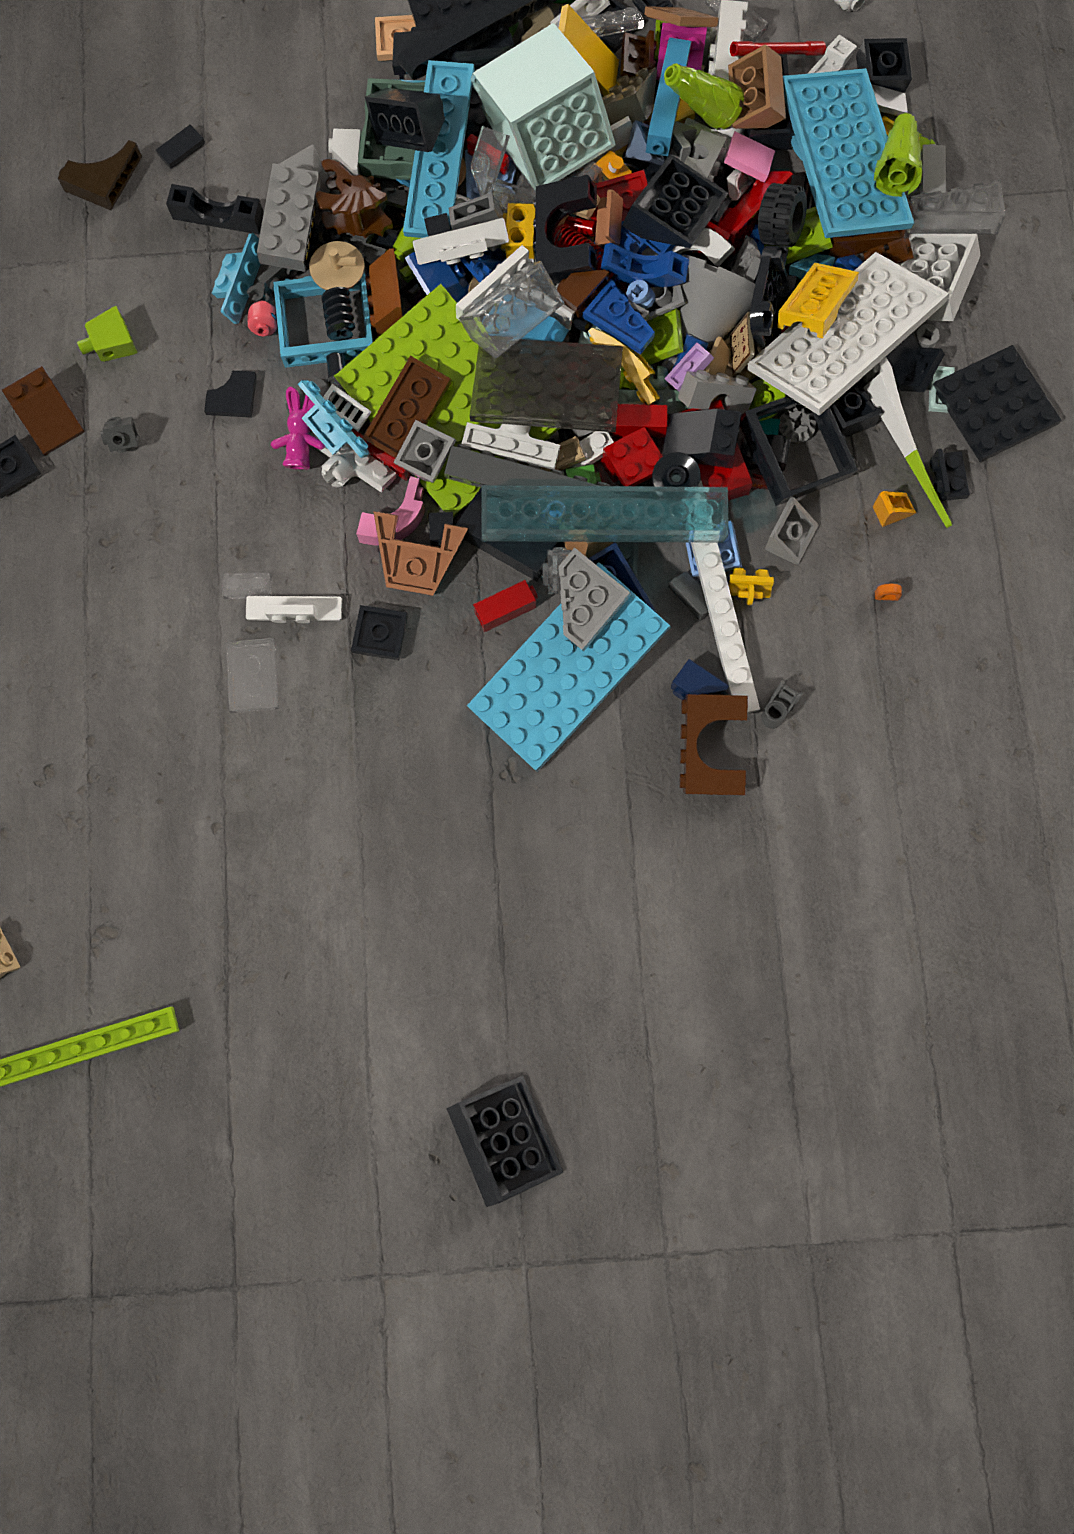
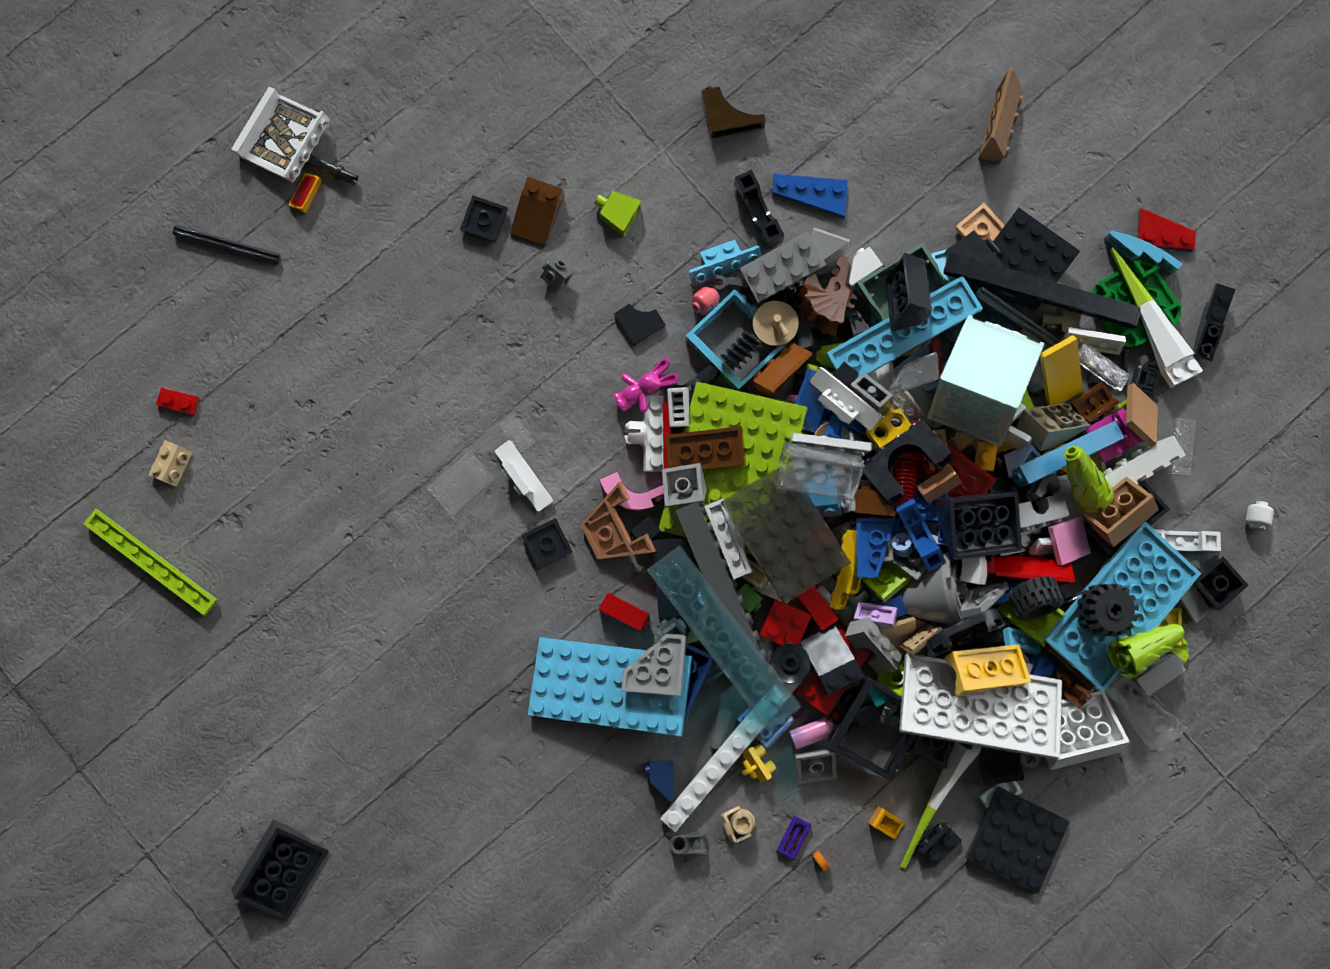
camera: 50 degrees right, 5 degrees up
(180, 146) = (789, 147): black tile -> none
(242, 152) = (812, 191): none -> blue wing
(328, 425) = (657, 407): medium azure bracket -> none
(699, 712) = (641, 797): reddish brown arch -> none
(757, 515) = (811, 732): none -> bright pink brick
(795, 644) = (740, 822): none -> tan piece
(807, 48) = (1149, 482): red piece -> none
(838, 607) = (801, 822): none -> dark purple tile
(841, 156) = (1107, 609): none -> black wheel

